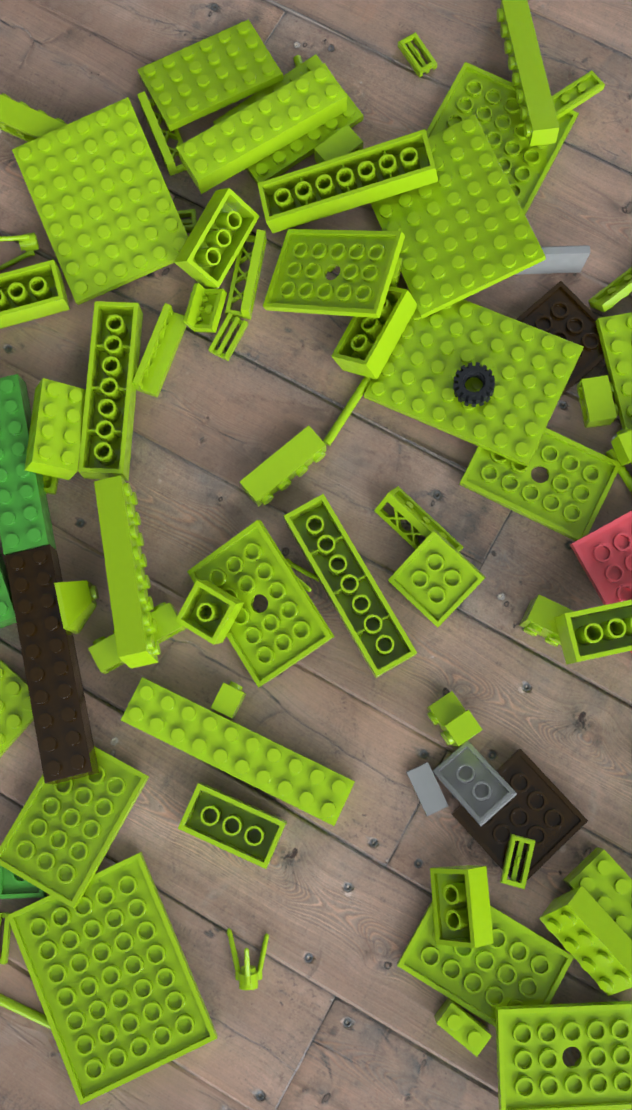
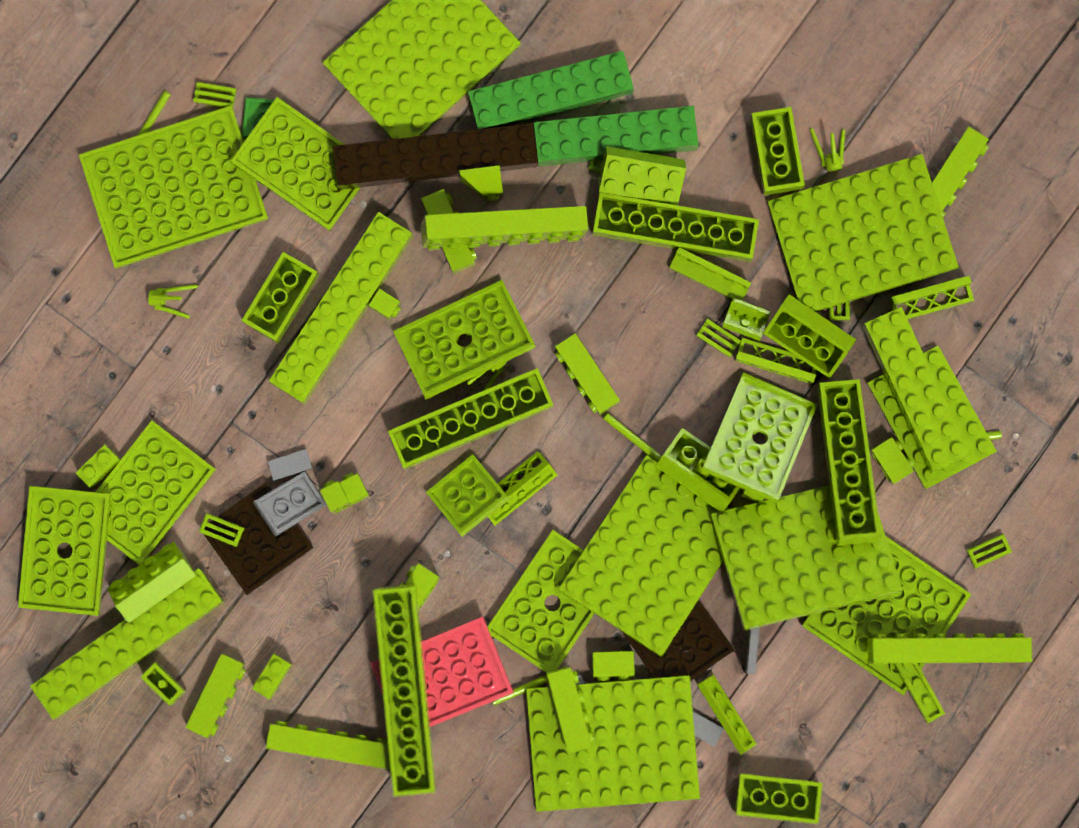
camera: 90 degrees right, 5 degrees up
(209, 611) = (460, 295): lime brick -> none
(210, 75) = (986, 347): lime plate -> none
(461, 906) = (192, 477): lime slope -> none
(473, 372) = (625, 556): black tyre -> none

